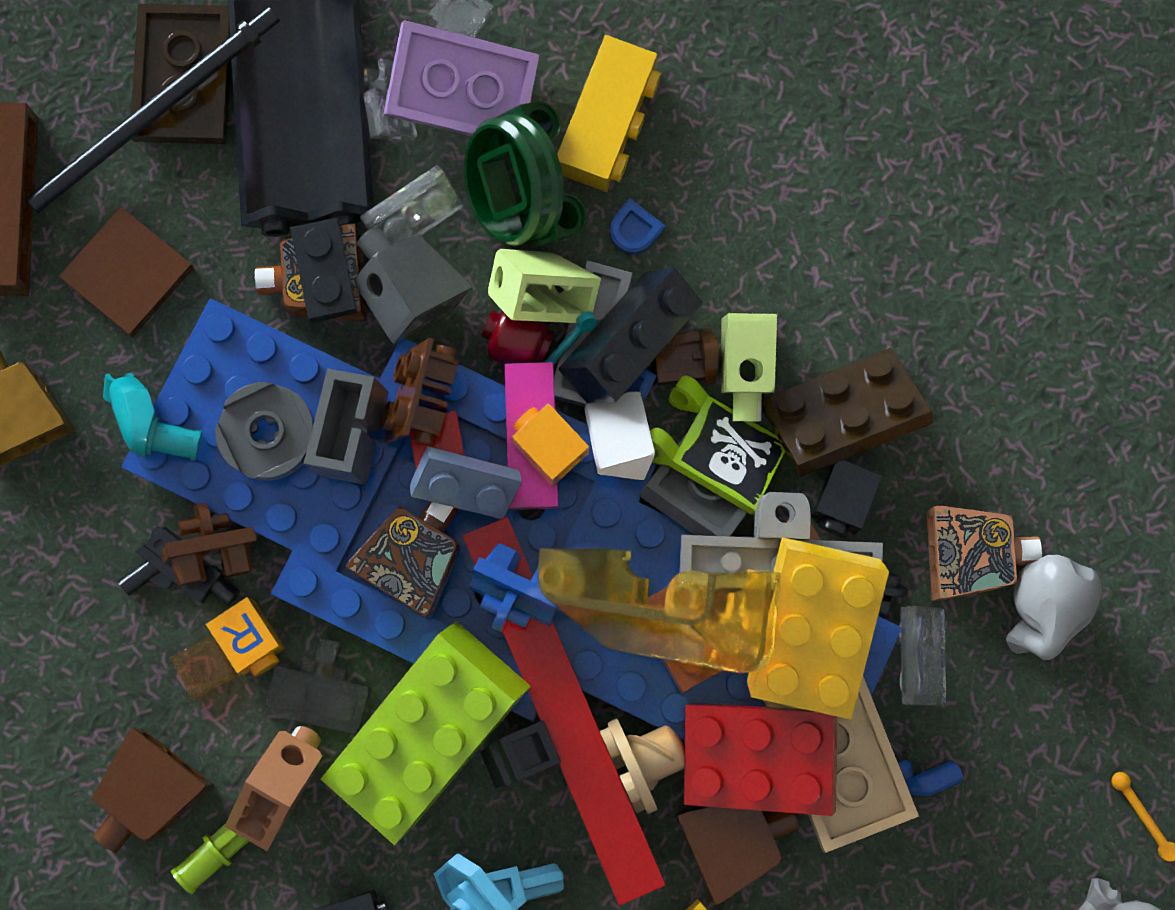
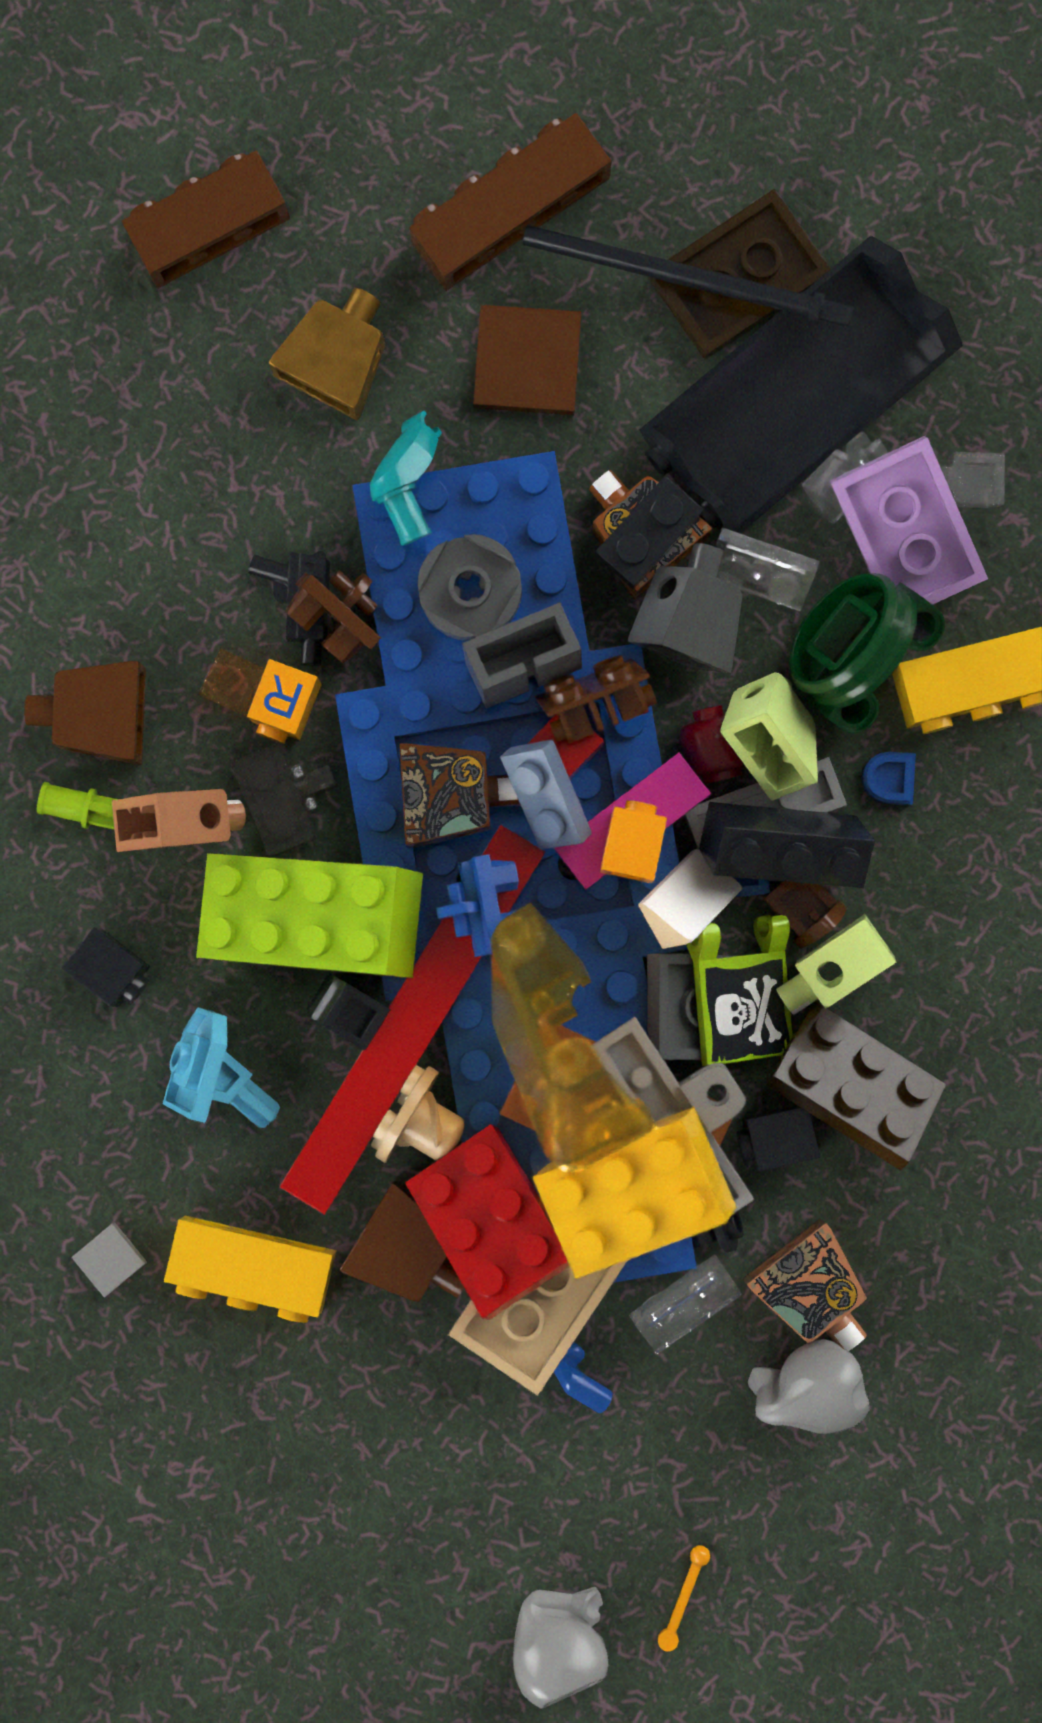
camera: 60 degrees right, 5 degrees up
(585, 322) = (768, 796): teal hinge -> none

